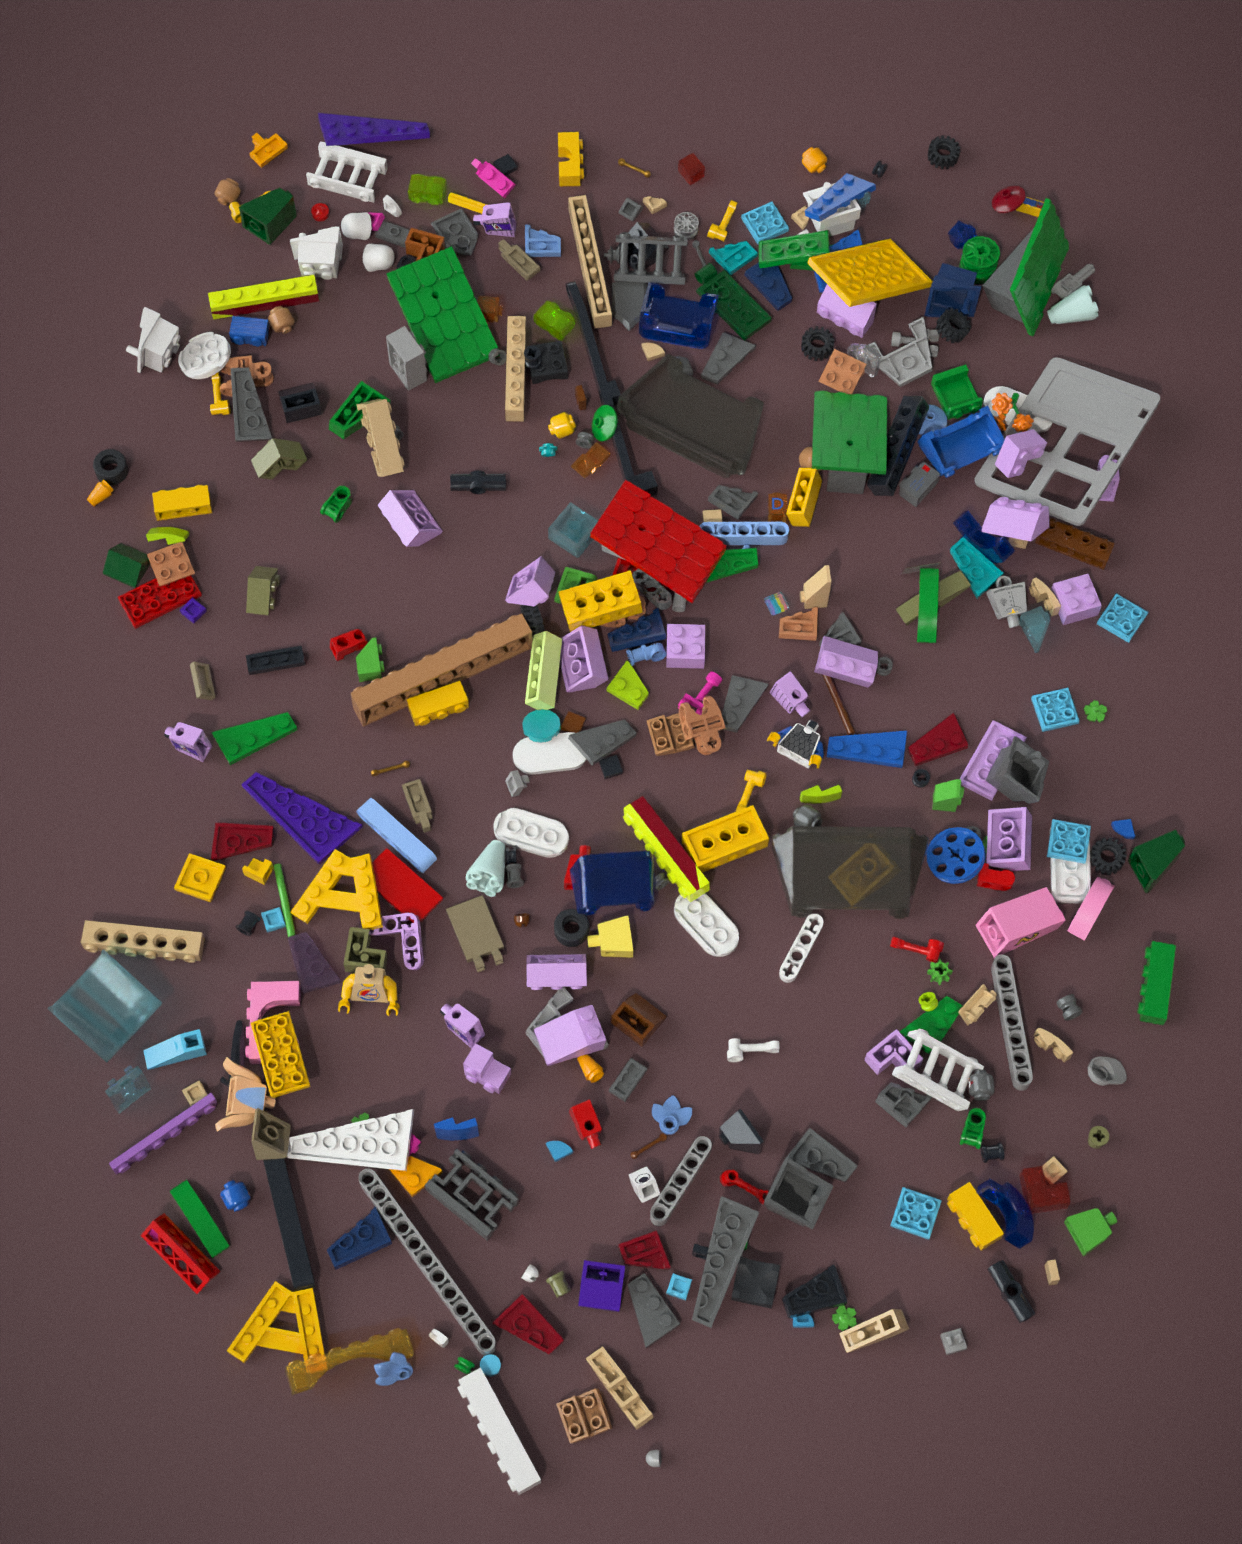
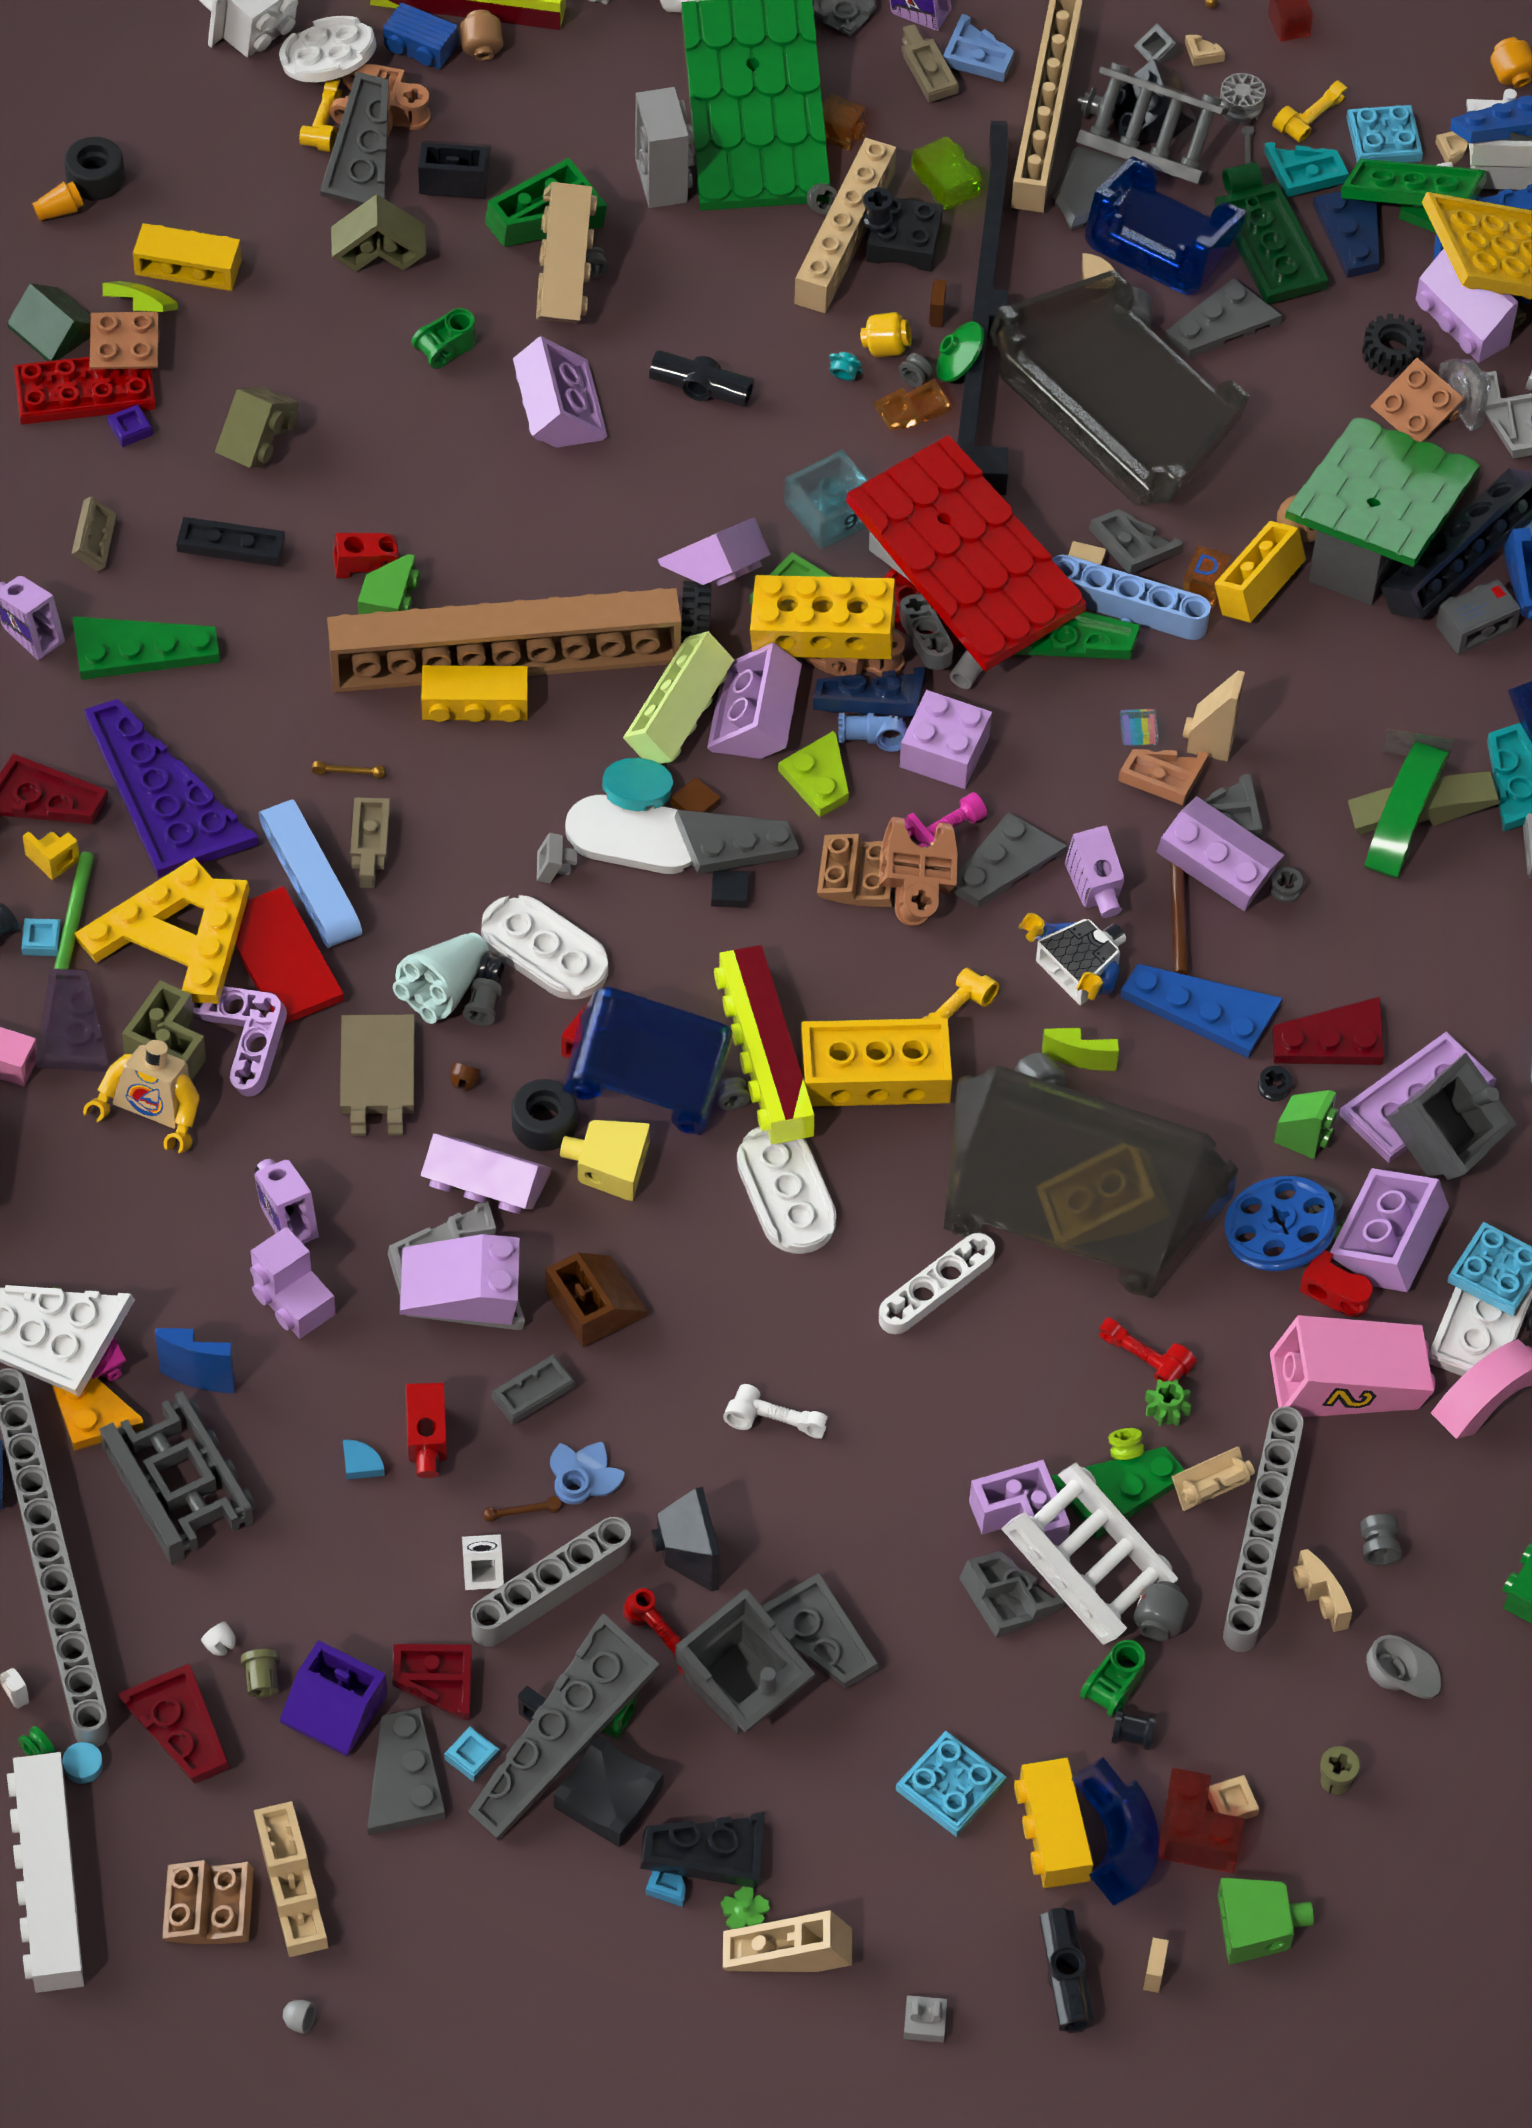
camera: 20 degrees right, 10 degrees down
(590, 1068) = (476, 1349): light orange cone -> none

